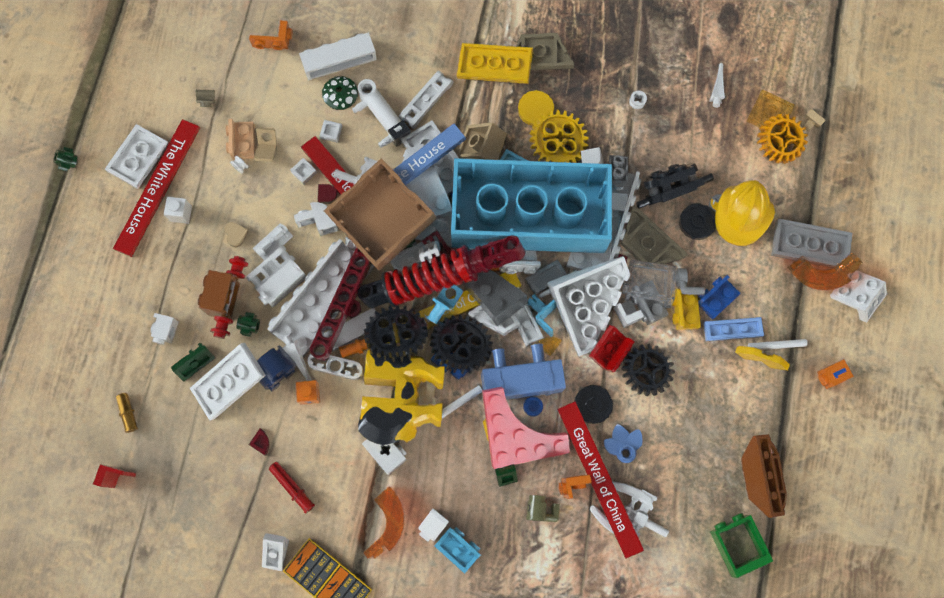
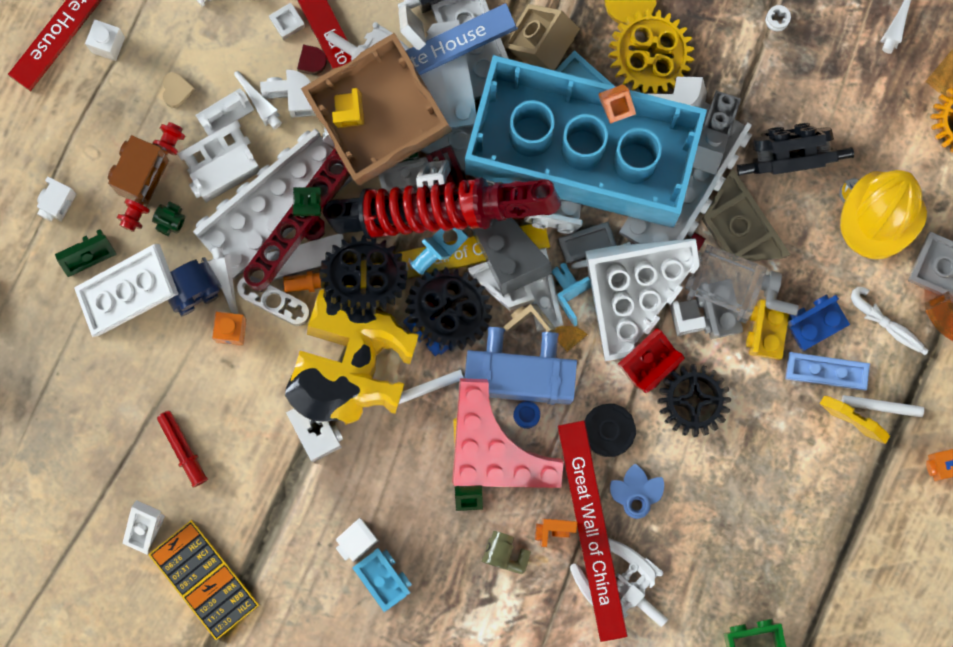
camera: 15 degrees right, 5 degrees up
(260, 442) = (153, 380): dark red tile -> none
(300, 233) = (265, 109): none -> white piece
(344, 289) = (306, 201): none -> dark green tile
(360, 219) = (348, 109): none -> yellow panel
(392, 155) = (411, 27): none -> white tile
(395, 523) = (307, 527): clear orange arch -> none
(513, 336) = (523, 314): none -> tan bracket
(549, 172) = (617, 103): none -> orange slope
(697, 221) = (817, 210): black tile -> none
(754, 282) = (873, 313): none -> white piece
(764, 476) = (815, 577): dark orange wedge -> none

